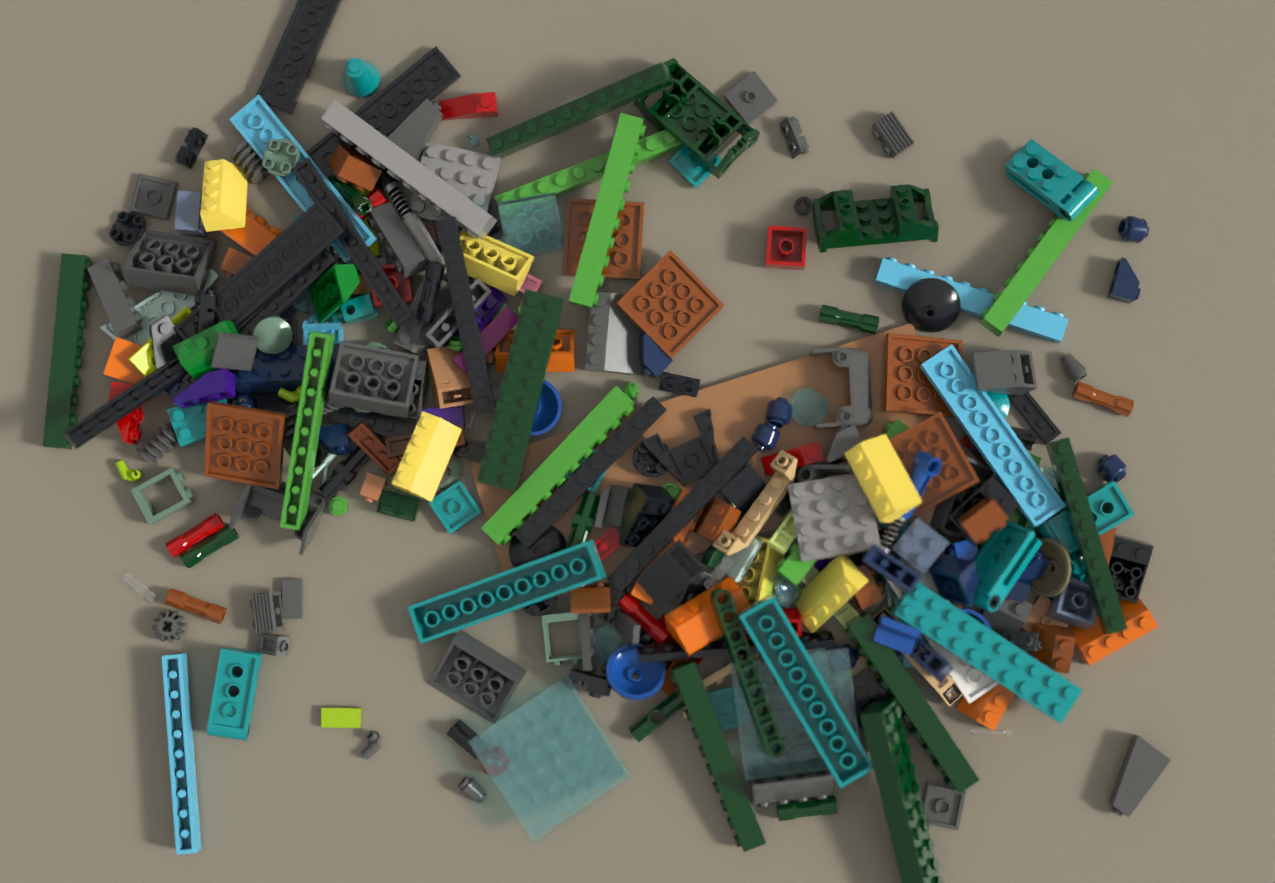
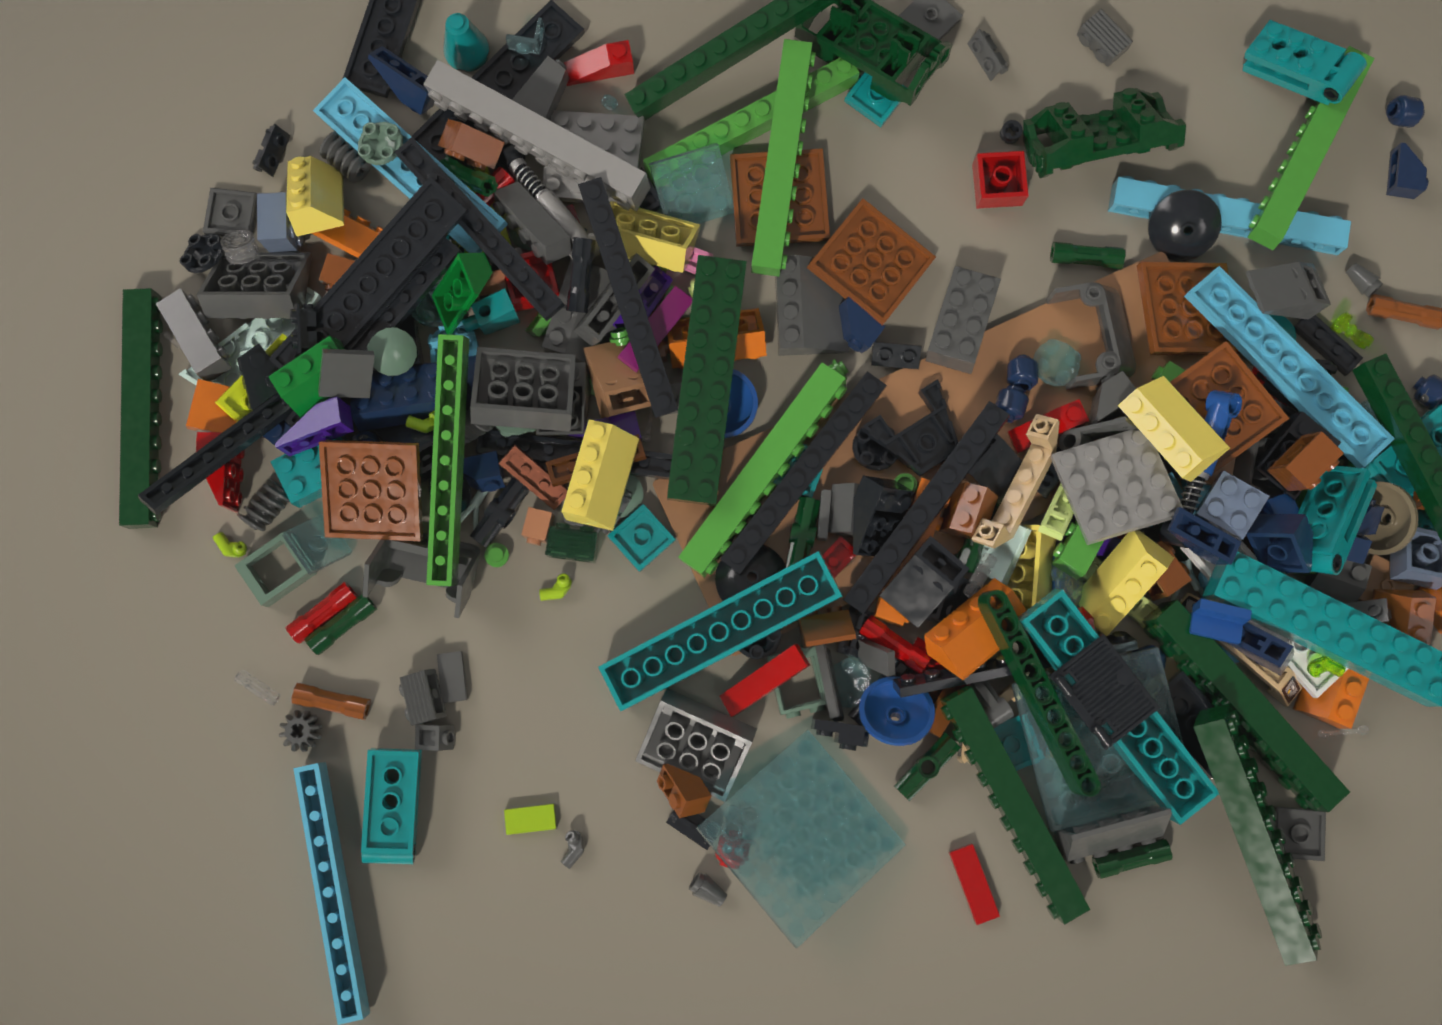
camera: 15 degrees left, 5 degrees down
(159, 228) = (239, 246): none -> clear wheel
(193, 482) = (313, 547): none -> clear light blue tile
(305, 101) = (402, 79): none -> dark blue slope
(385, 539) = (559, 589): none -> lime arm
(410, 86) = (527, 45): none -> clear light blue bracket
(463, 711) = (683, 790): none -> dark orange slope
(536, 634) = (764, 680): none -> red tile
(680, 812) = (974, 884): none -> red tile
(711, 677) = (996, 708): none -> dark grey piece
(737, 362) = (963, 319): none -> dark grey brick
(795, 679) = (1104, 691): none -> black window
(978, 678) = (1323, 665): none -> clear neon green arm
(1055, 409) = (1359, 337): none -> clear neon green piece

